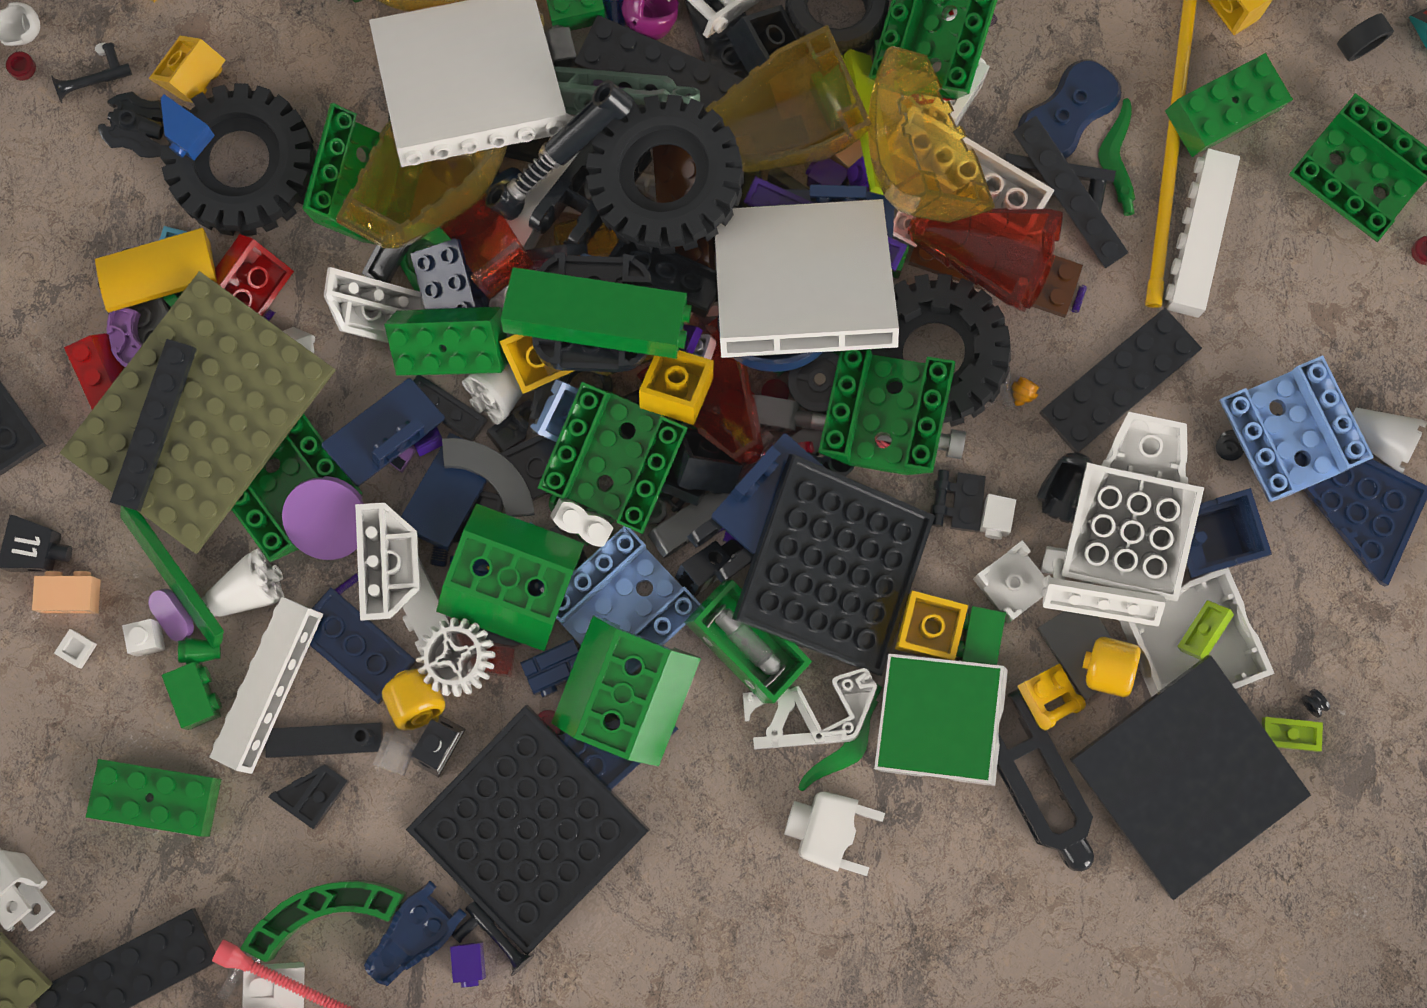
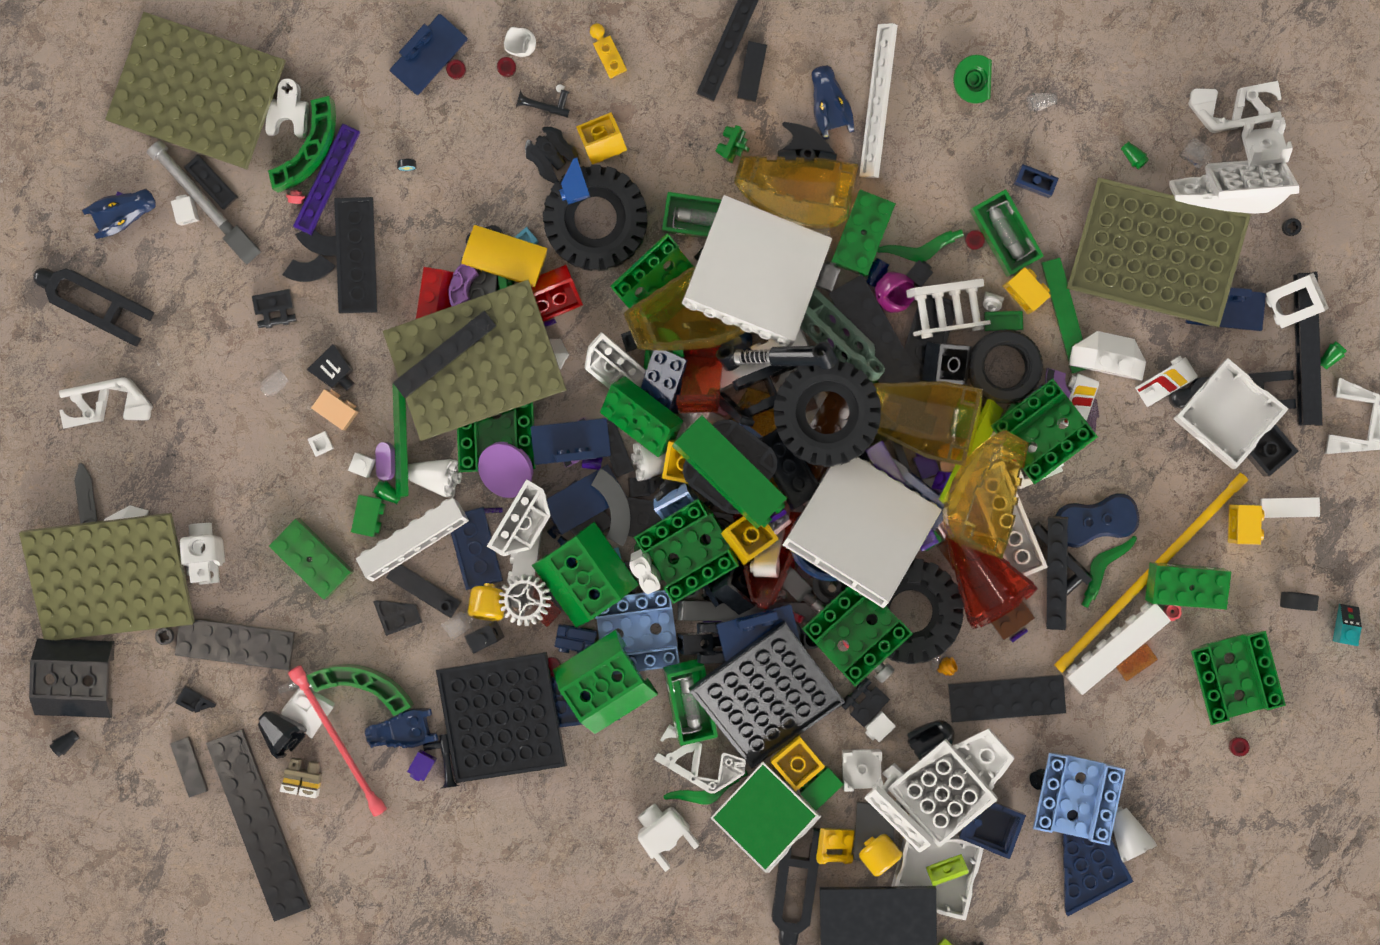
camera: 30 degrees right, 10 degrees up
(348, 78) = (689, 215): none -> green piece
(720, 403) = (767, 562): none -> door
(1235, 144) = (1172, 616): none -> coral plate
(1237, 234) = (1136, 662): none -> clear orange plate

